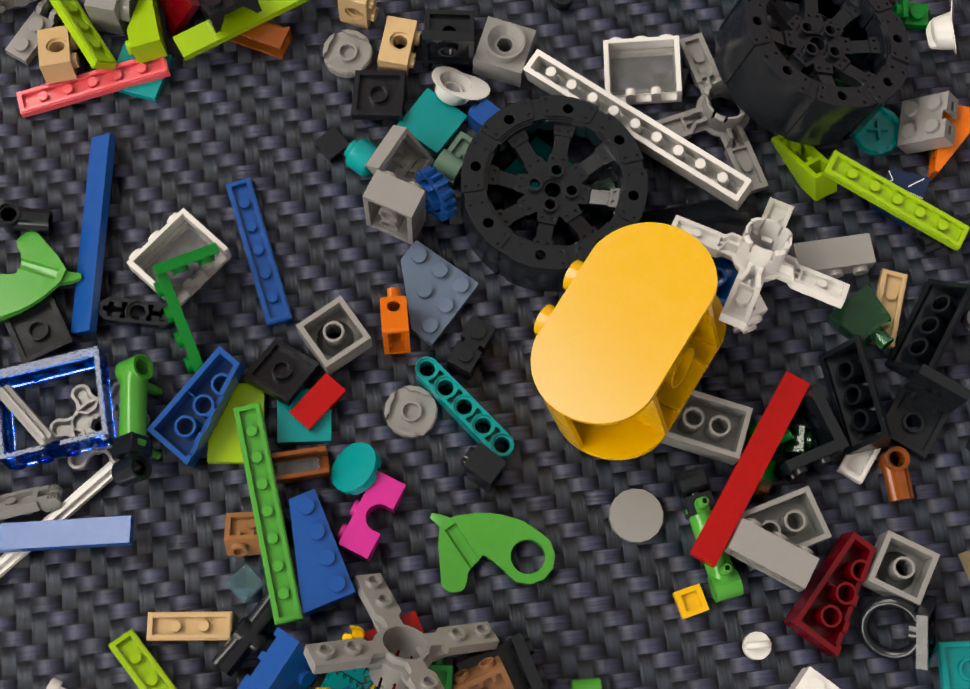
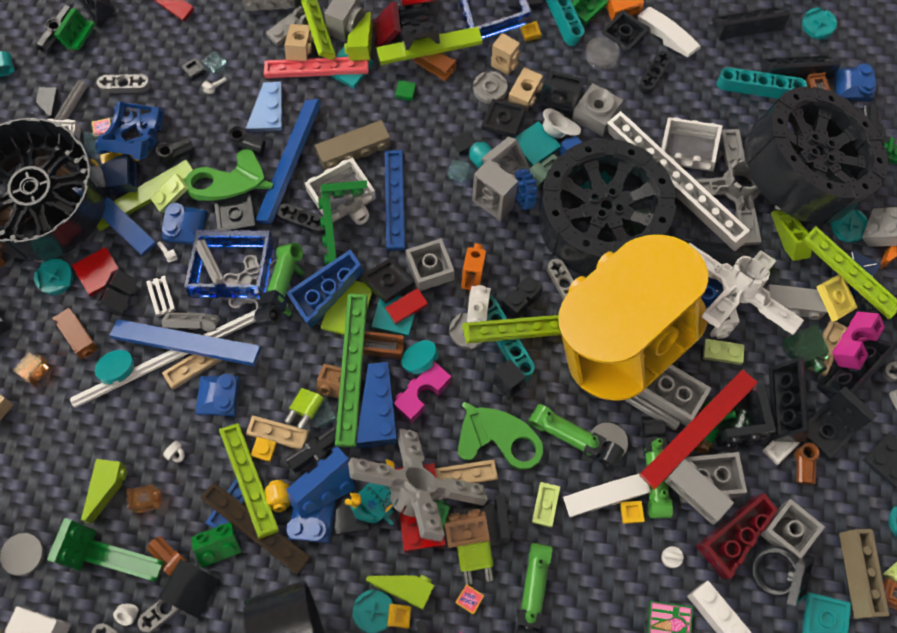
camera: 20 degrees right, 5 degrees down
(37, 573) = (188, 369): none -> tan tile
(41, 164) = (267, 109): none -> light blue wing
(91, 597) = (218, 395): none -> blue slope
(177, 655) = (263, 449): none -> yellow plate
(179, 188) = (353, 145): none -> dark tan brick
(214, 284) = (357, 213): none -> white tile
(217, 577) = (306, 405): none -> lime piece
(230, 87) = (405, 90): none -> green tile
(335, 186) = (458, 170): none -> clear light blue tile
(417, 380) = (478, 303): none -> white bracket
(433, 291) = (506, 255): sand blue plate -> none
(463, 609) = (472, 472): none -> tan tile
(469, 397) = (511, 329): none -> lime tile
(505, 302) = (564, 275): none -> light grey beam
(576, 623) = (545, 504): none -> yellowish green plate
(617, 526) = (591, 444): none -> bright green piece
(651, 588) = (606, 495): none -> white slope
(687, 458) = (654, 411): none -> light grey axle
(755, 350) = (723, 351): none -> yellowish green plate
(884, 238) = (837, 297): none -> light yellow tile
(916, 307) = (850, 349): none -> dark pink arch

